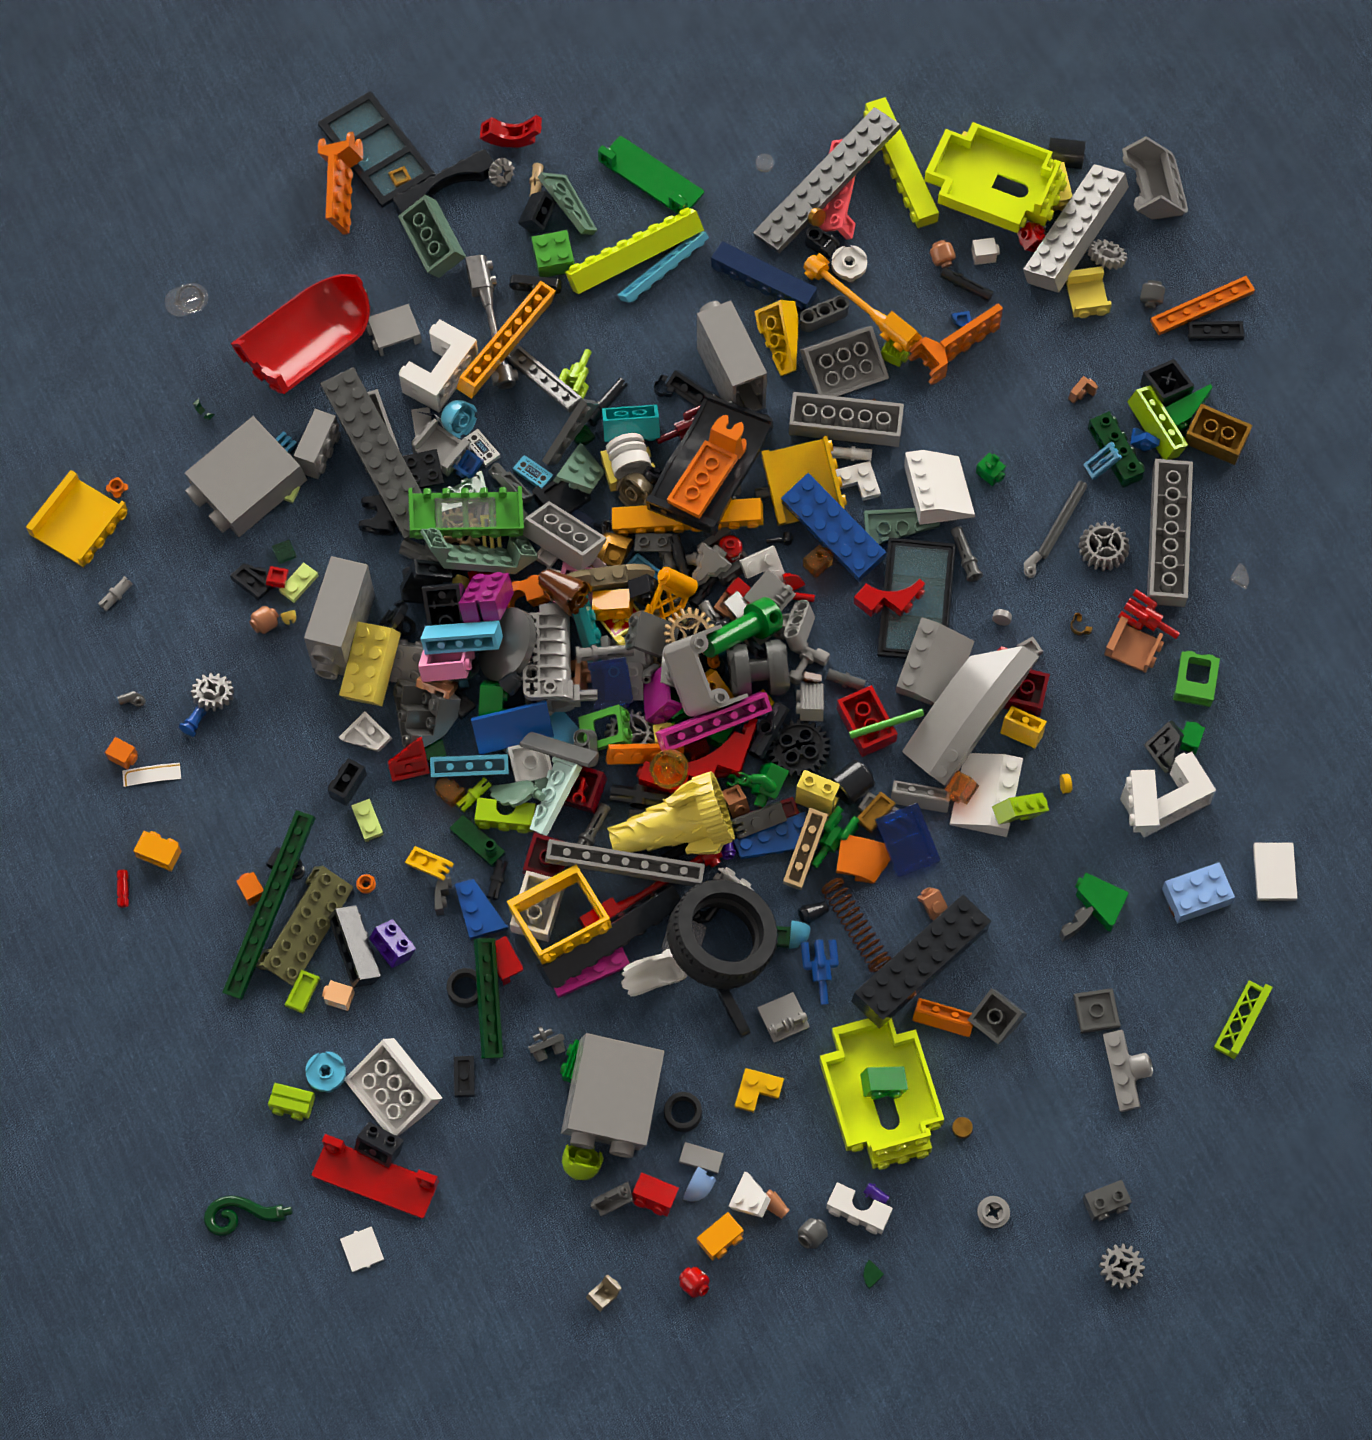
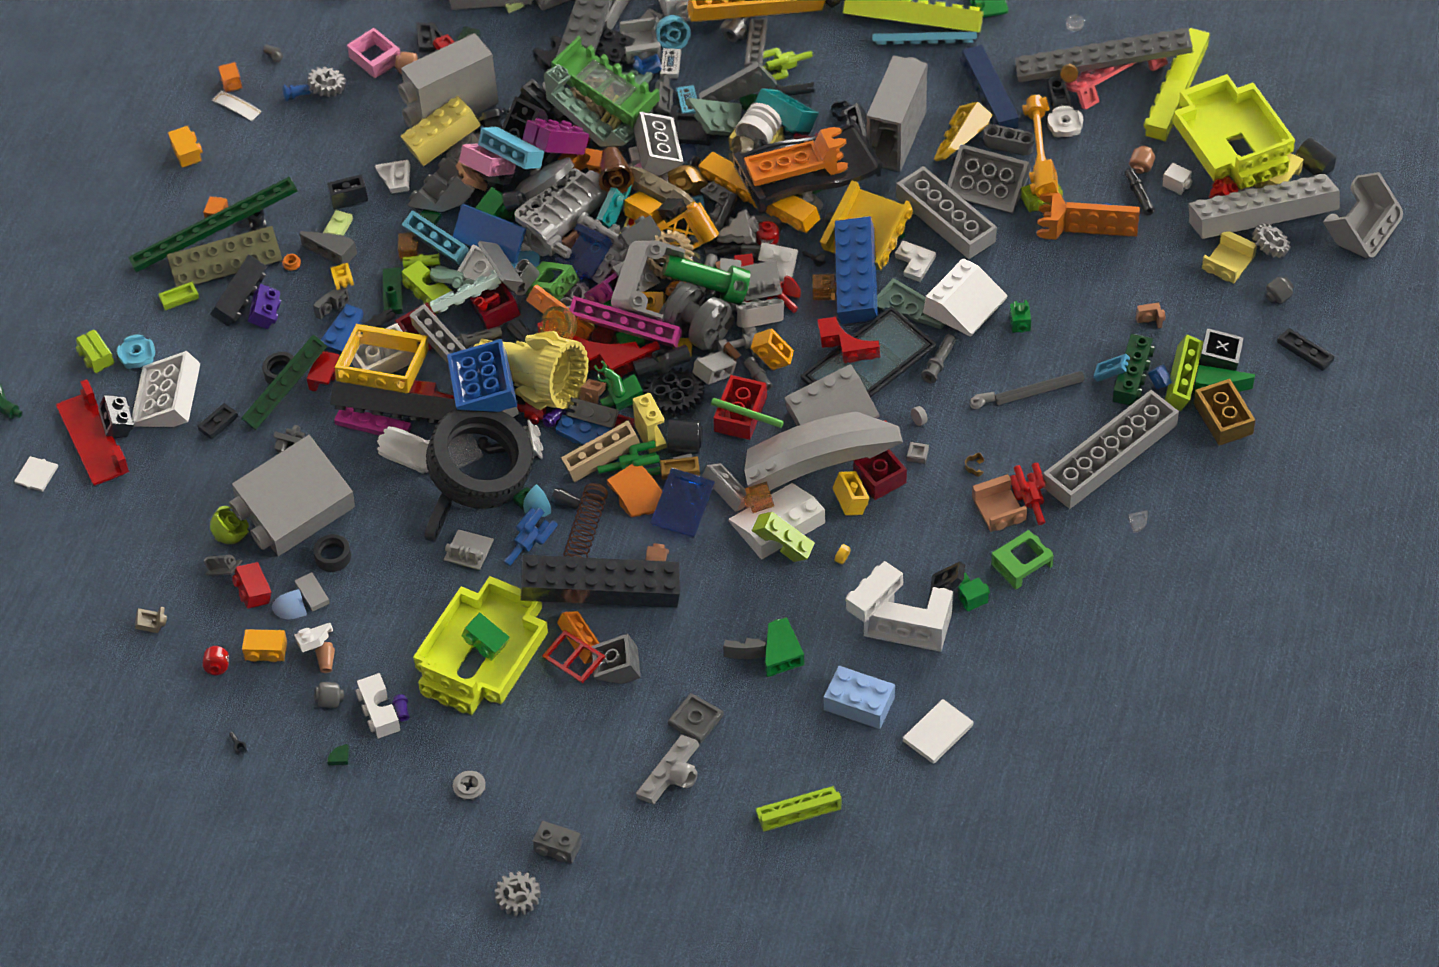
camera: 45 degrees right, 15 degrees down
(122, 888) = (140, 155): red axle -> none
(239, 618) = (379, 64): none -> bright pink window
(338, 995) = (196, 313): light nougat brick -> none
(388, 841) = (331, 246): none -> dark grey slope
(409, 762) = (399, 208): red wing -> none
(669, 867) = (482, 378): none -> blue slope
(757, 1083) = (398, 575): yellow plate -> none
(783, 1334) = (238, 744): none -> black hand
(842, 651) = (772, 349): none -> light orange brick
(852, 453) = (928, 239): white pin -> none
(961, 1038) = (564, 667): none -> red window
(962, 1127) = (511, 715): pearl gold tile -> none
(1096, 537) = (1050, 424): light grey gear -> none
(1202, 305) = (1312, 324): orange plate -> none

